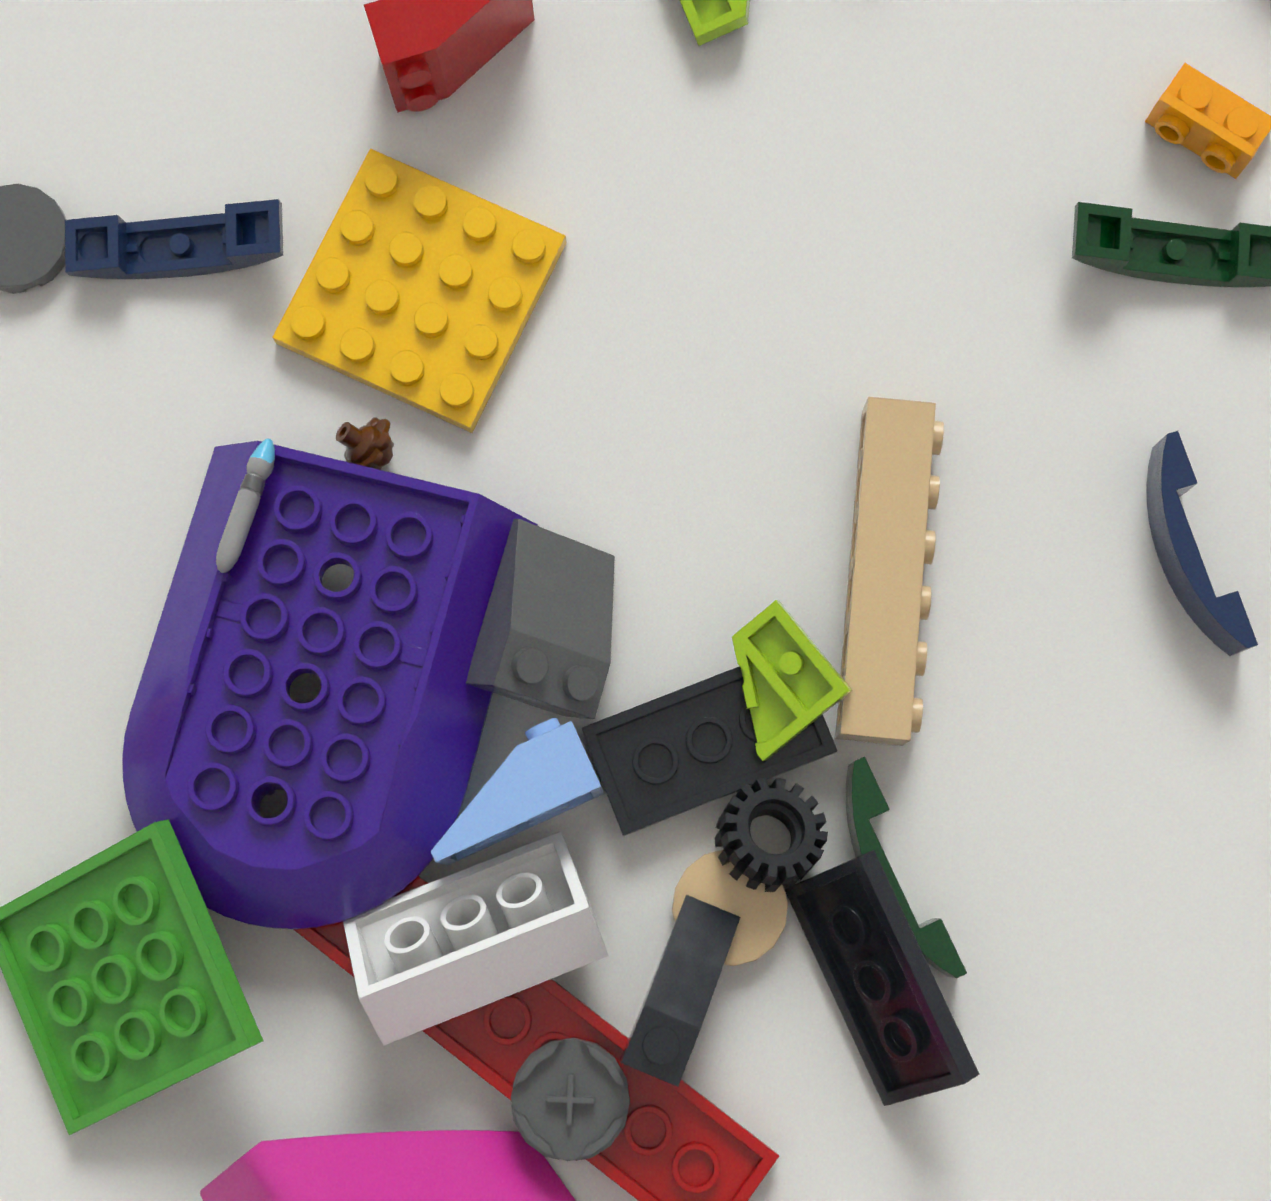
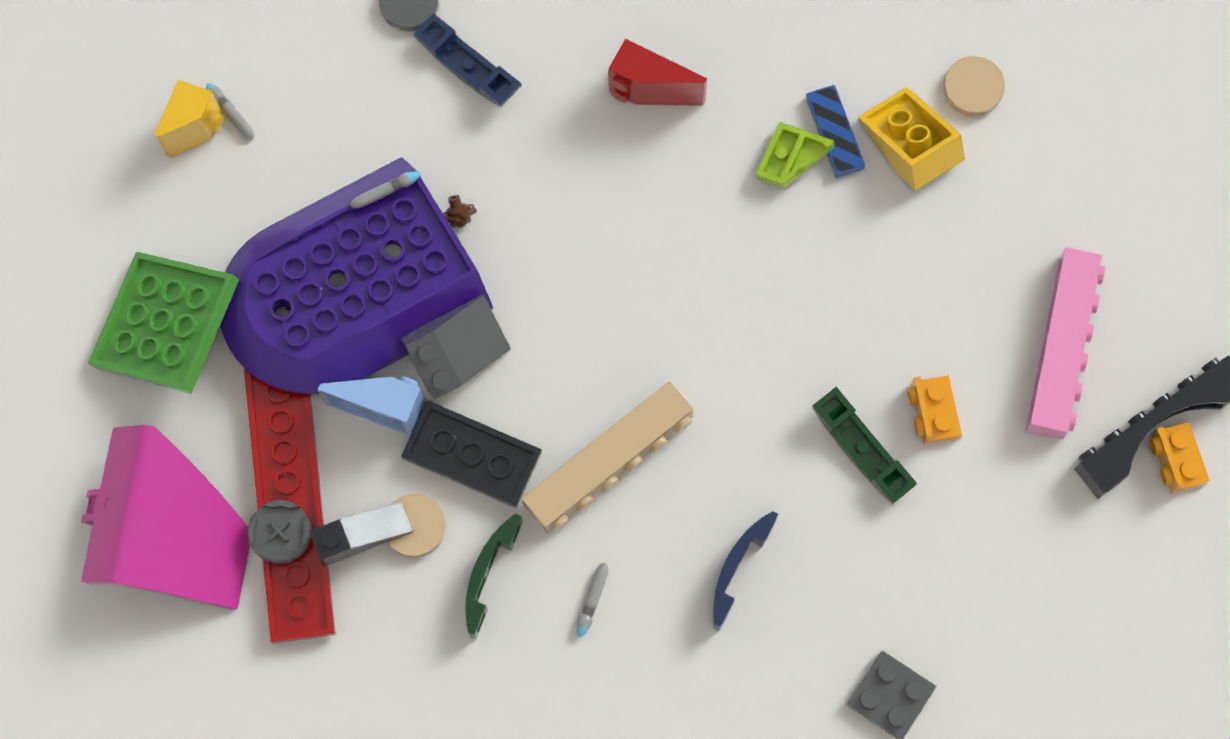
camera: 45 degrees right, 5 degrees down
(420, 290) = (544, 171): yellow plate -> none
(472, 938) = (304, 436): white slope -> none
(784, 678) = (522, 455): lime wing -> none
(789, 809) = (469, 498): black tyre -> none
(881, 981) = (439, 604): black plate -> none
(1051, 772) = (585, 619): none -> light grey piece

